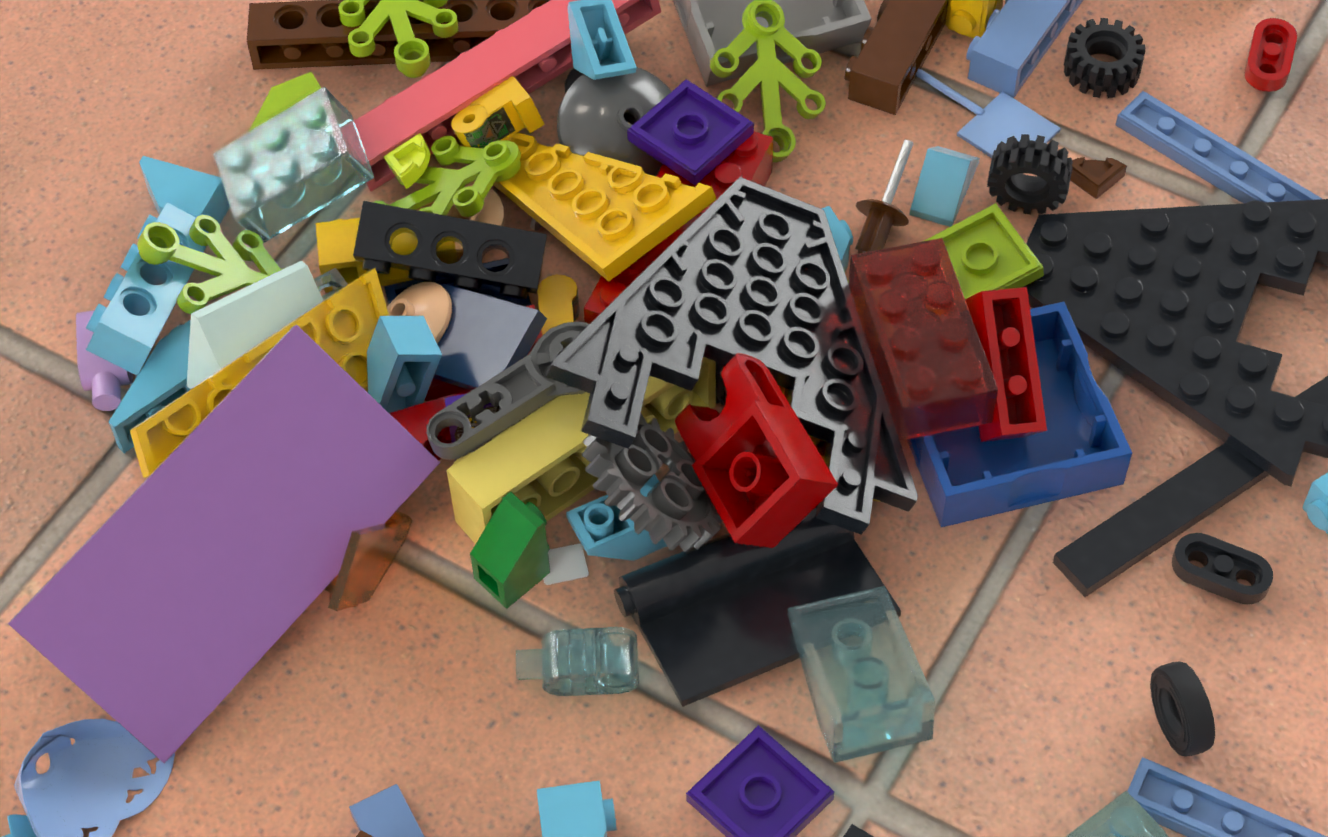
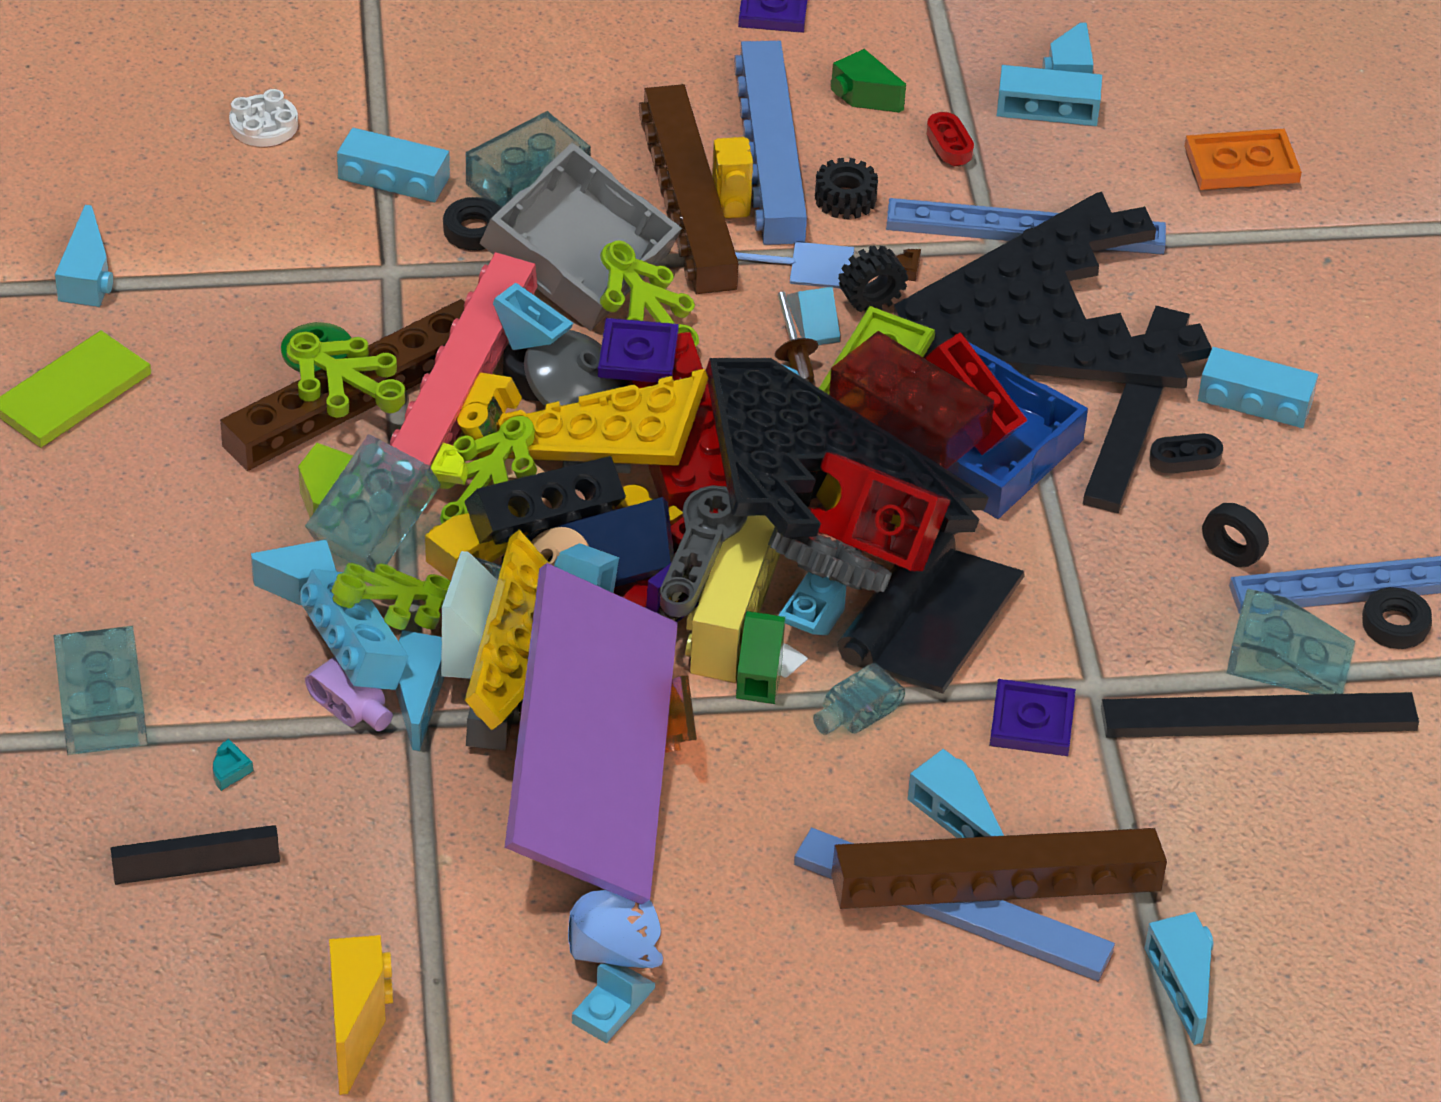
camera: 40 degrees left, 10 degrees down
(862, 674) = (1039, 614): clear light blue slope -> none

